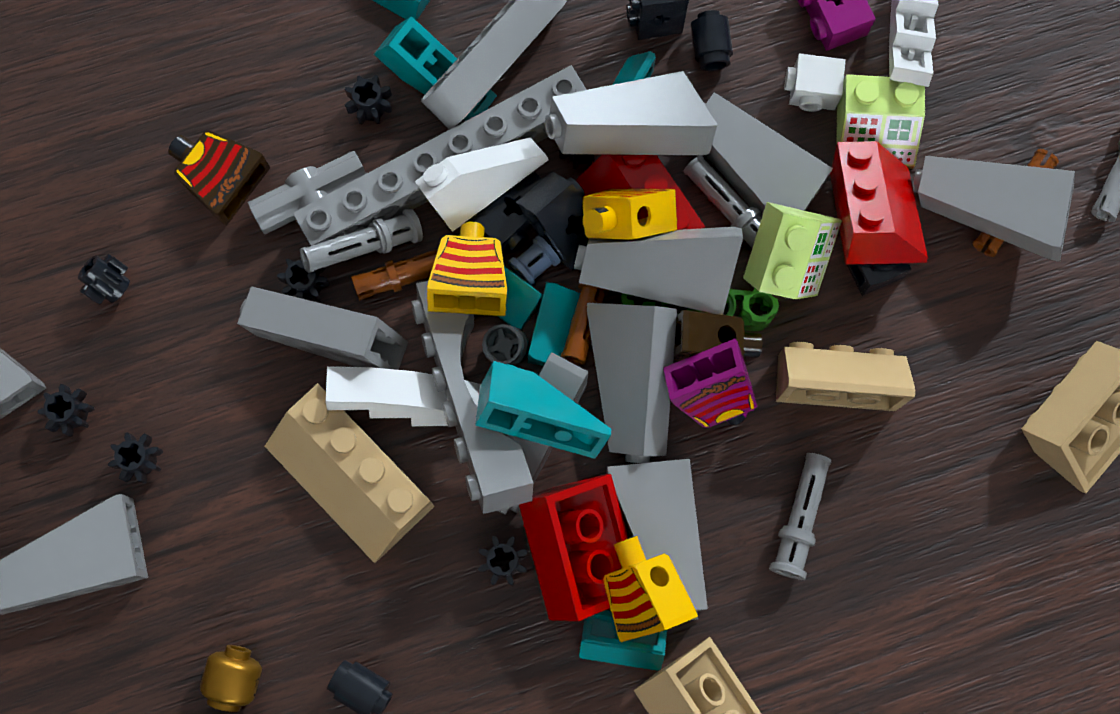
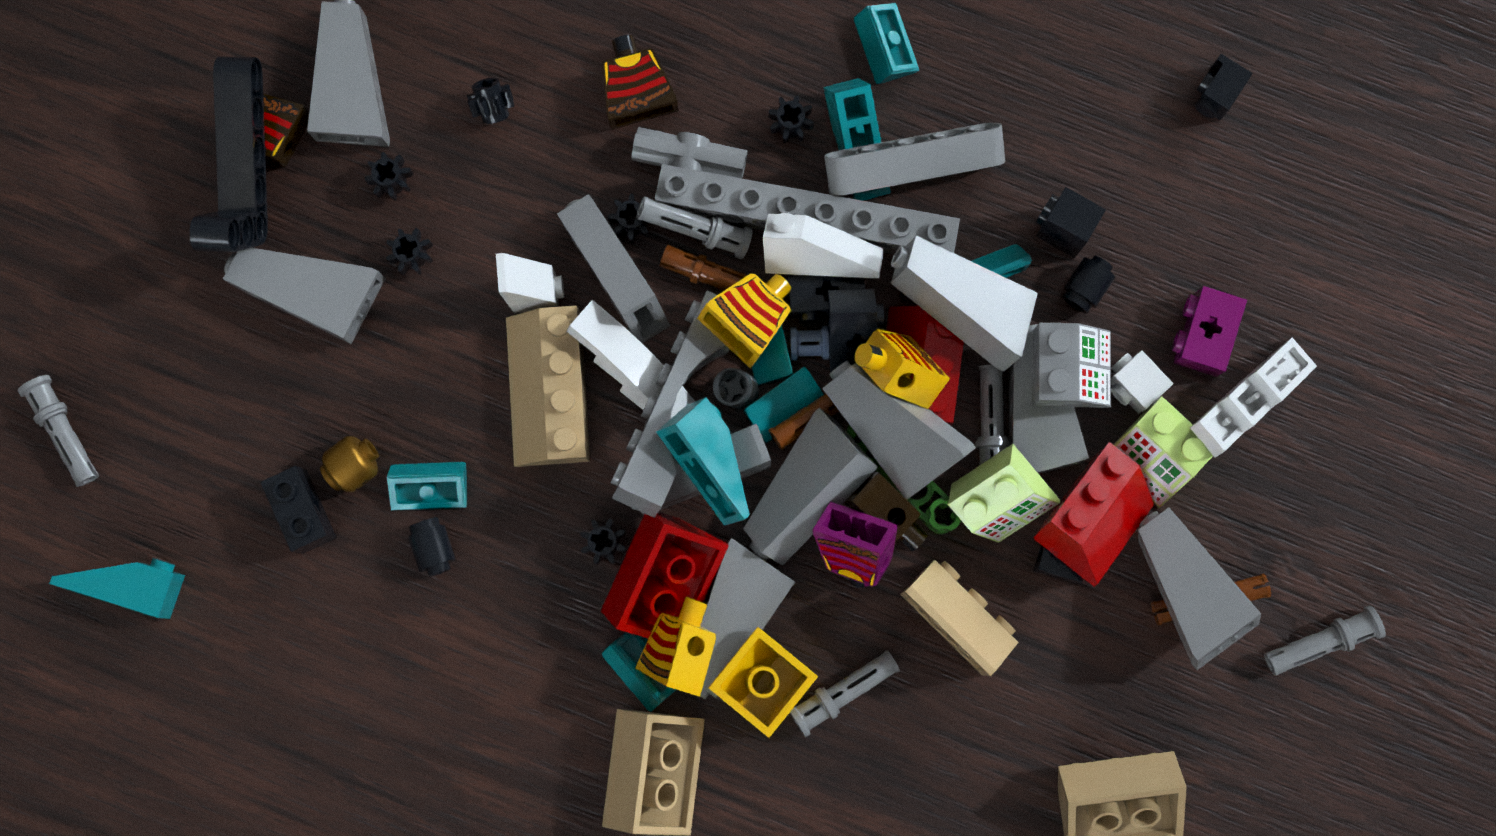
camera: 45 degrees right, 5 degrees up
(260, 398) = (527, 283): none -> white slope
(313, 641) = (427, 486): none -> teal slope
(736, 562) = (763, 682): none -> yellow slope
(756, 107) = (1071, 366): none -> light grey slope

